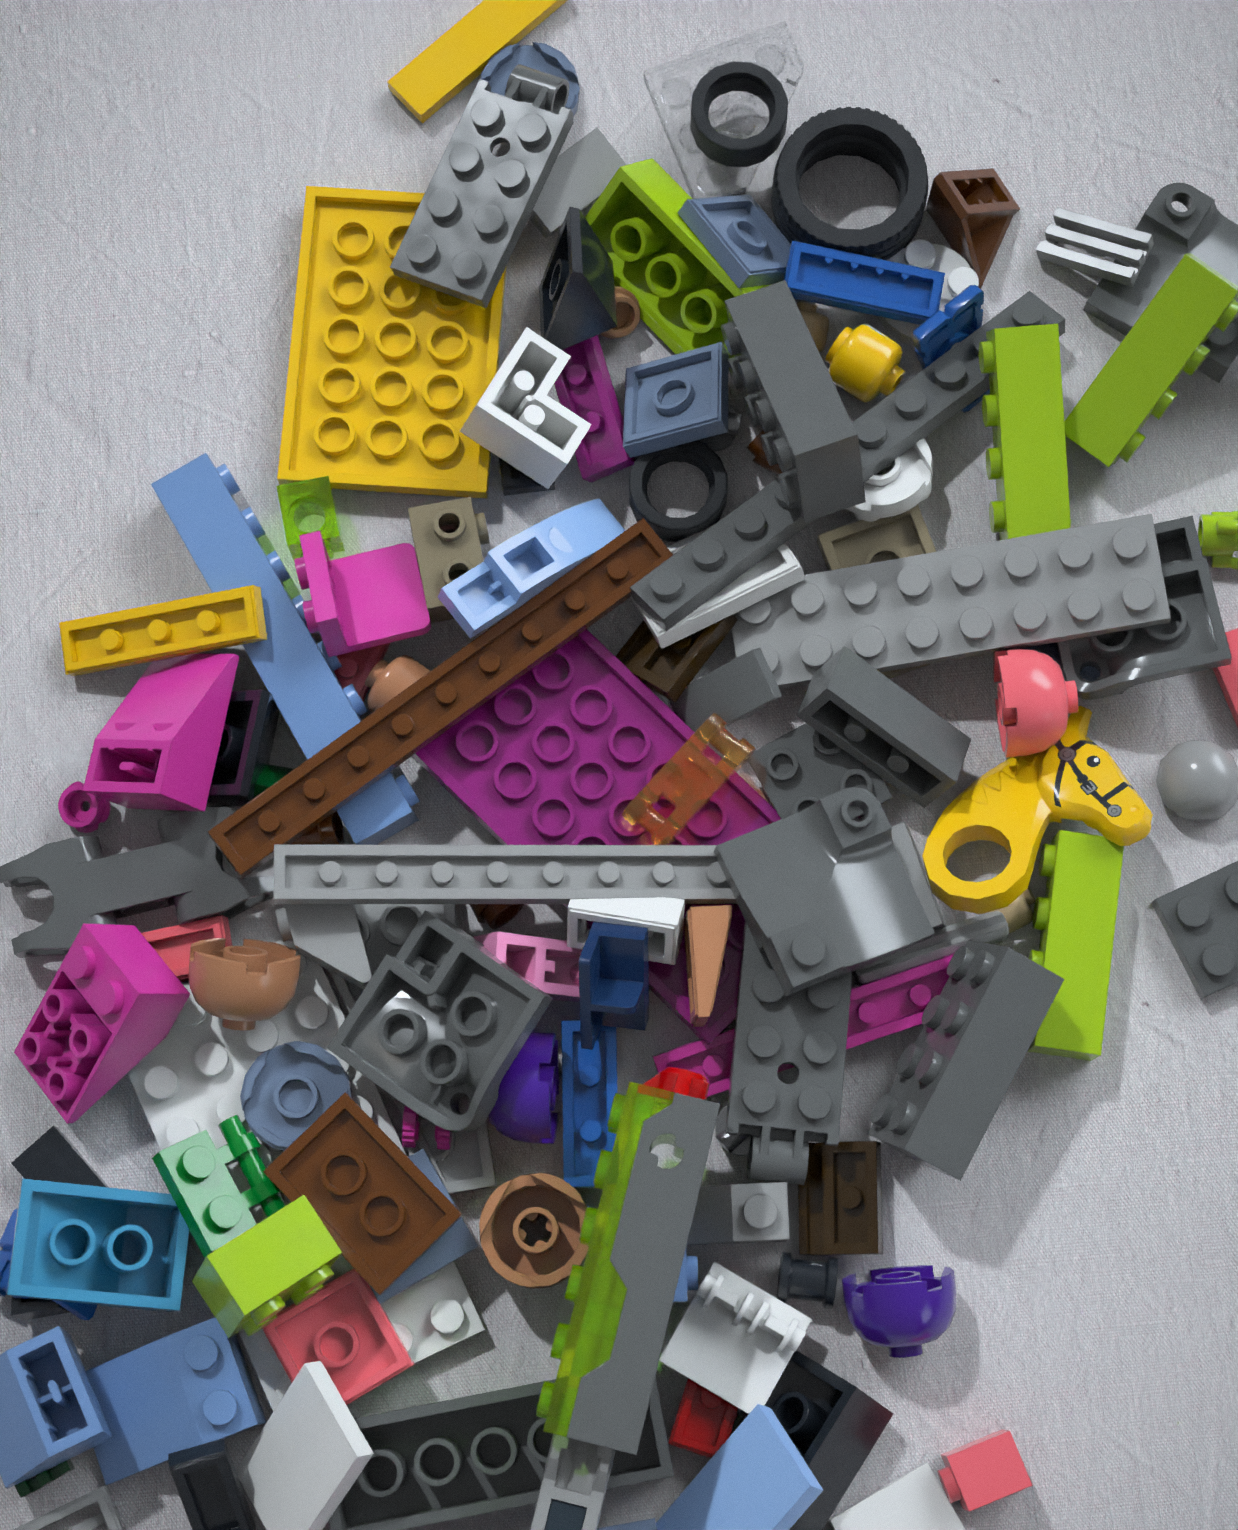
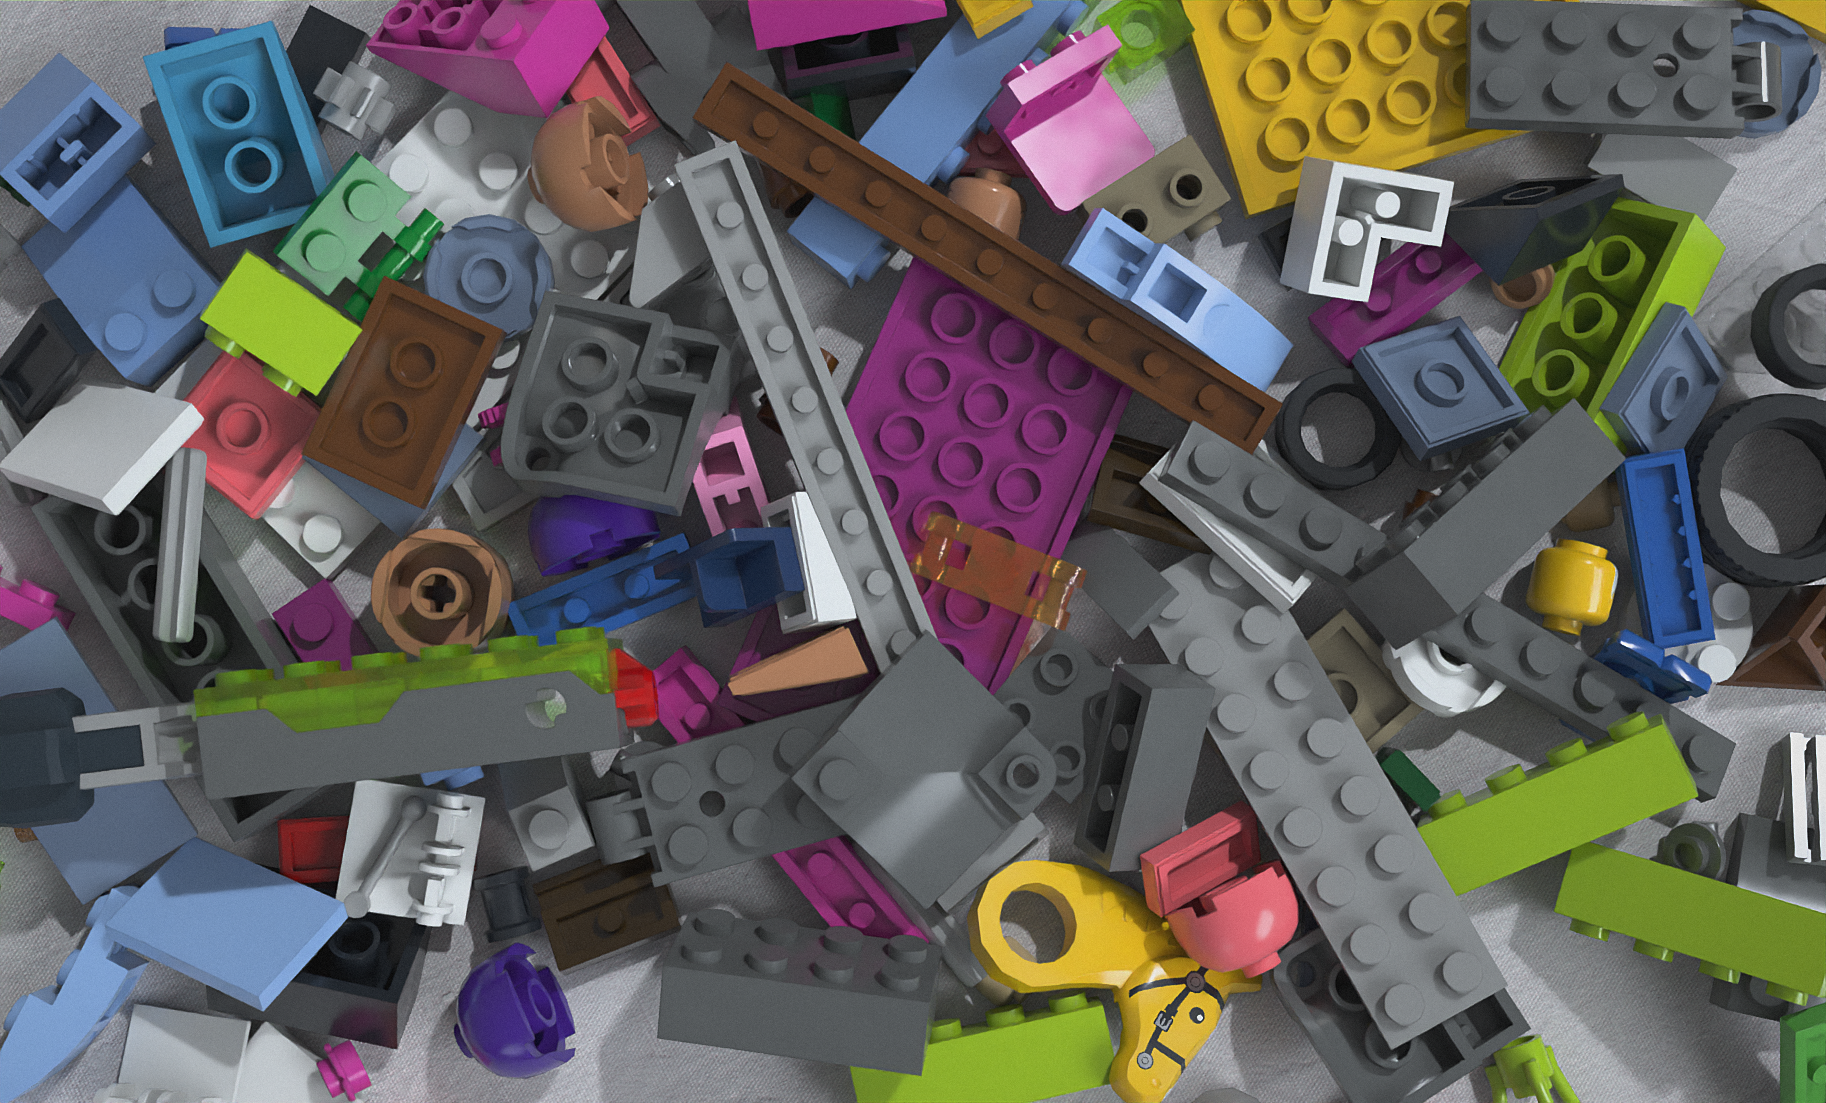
camera: 65 degrees right, 10 degrees up
(106, 1153) = (354, 101): none -> light grey gear
(416, 1424) = (179, 546): none -> light grey axle
(524, 1348) = (324, 626): none -> magenta plate
(702, 1322) = (358, 902): none -> light grey hinge
(895, 1465) = (343, 1070): none -> dark pink plate
(971, 533) = (1407, 779): none -> dark green tile
(972, 714) = (1200, 858): none -> coral tile
(1097, 347) = (1696, 849): none -> flat silver plate

